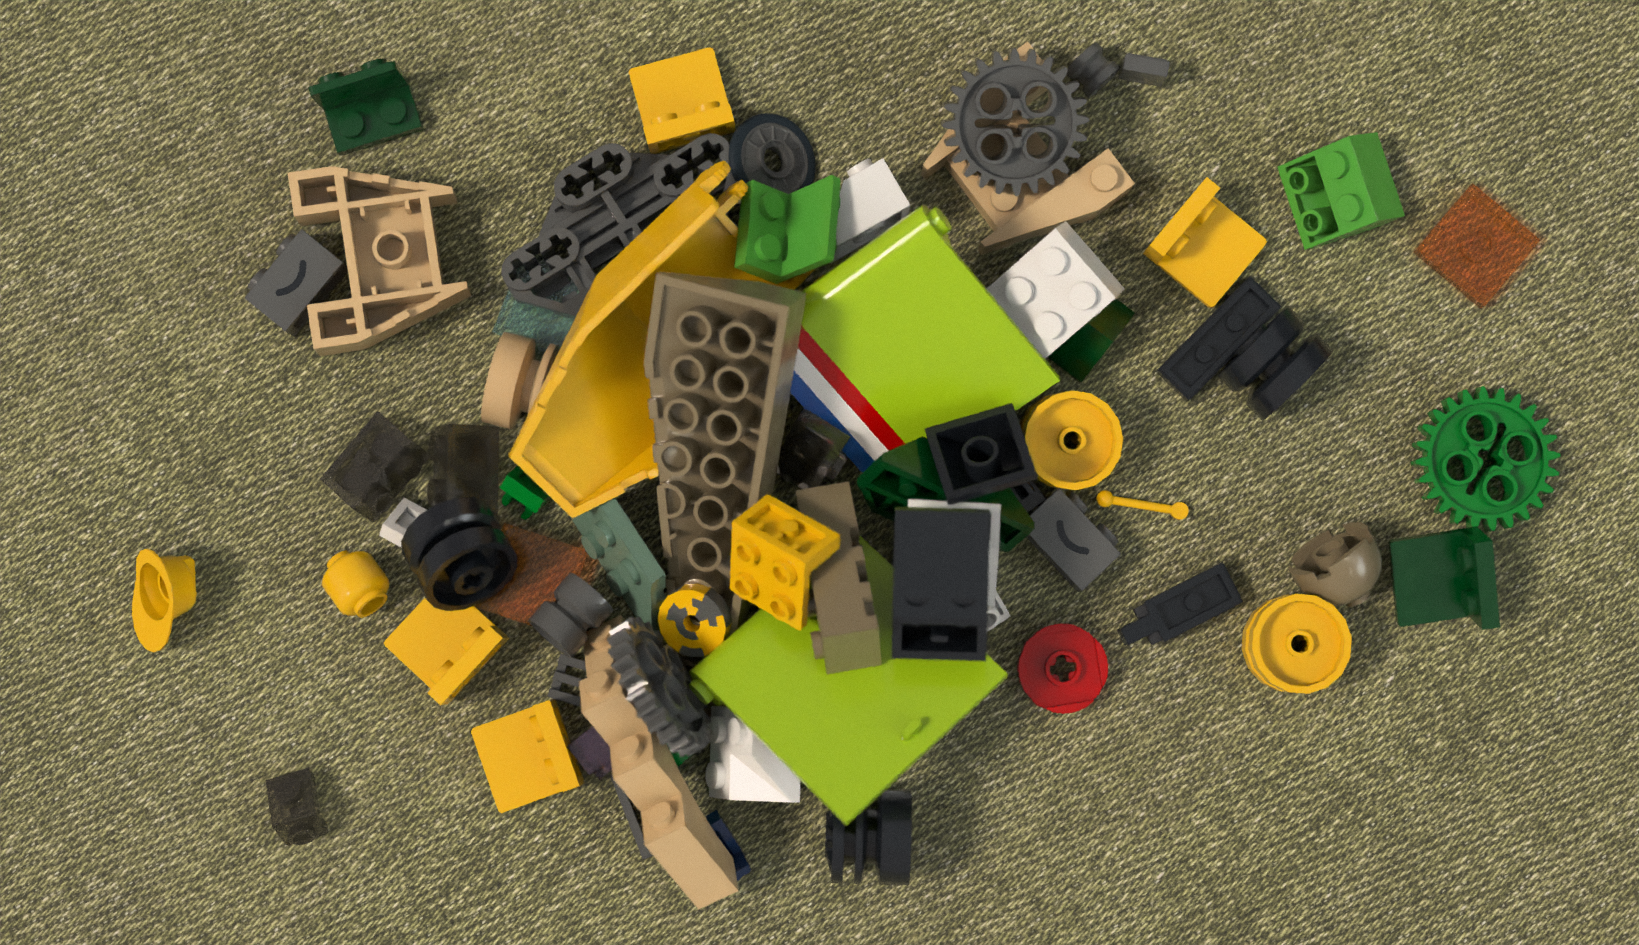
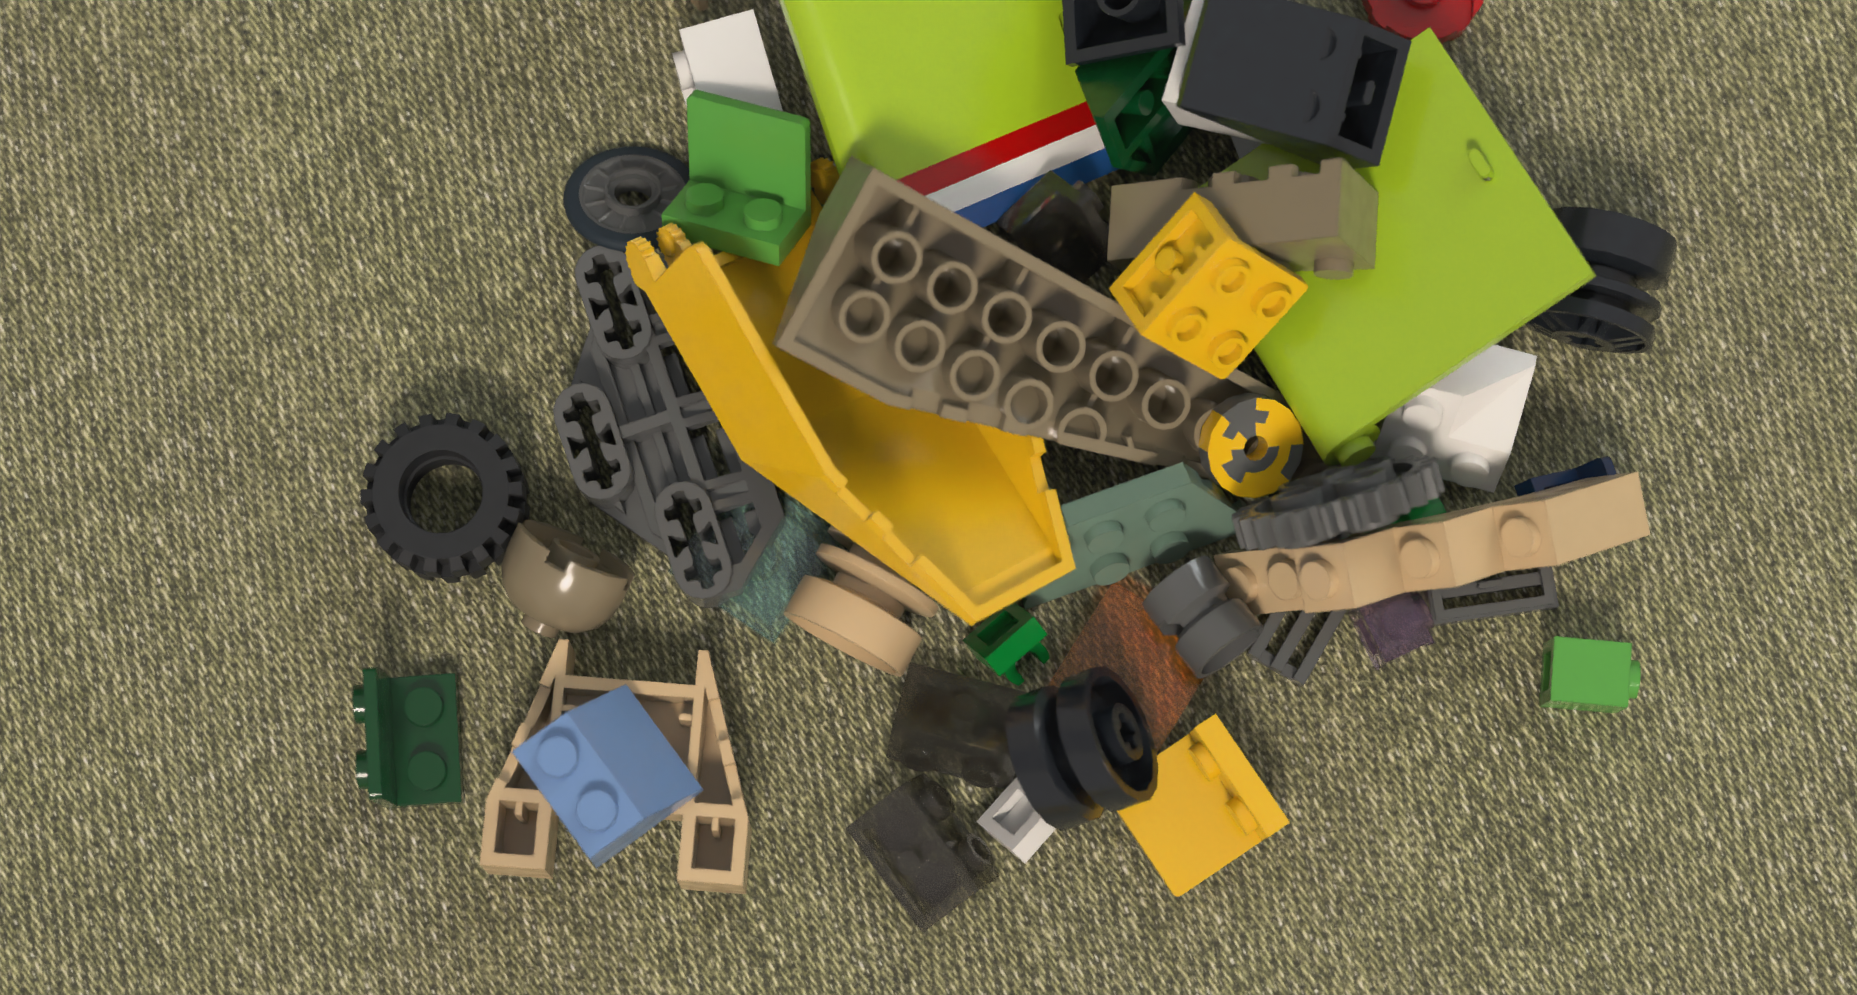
camera: 80 degrees left, 5 degrees down
(298, 277) = (635, 904): dark grey brick -> none
(355, 583) = (1083, 914): yellow head -> none
(362, 239) = (607, 772): none -> medium blue slope
(496, 179) = (561, 581): none -> dark tan cylinder
(526, 53) = (408, 460): none -> black tyre
(527, 756) = (1380, 729): yellow bracket -> none
(598, 890) = (1588, 675): none -> bright green brick
(681, 100) = (515, 303): yellow bracket -> none

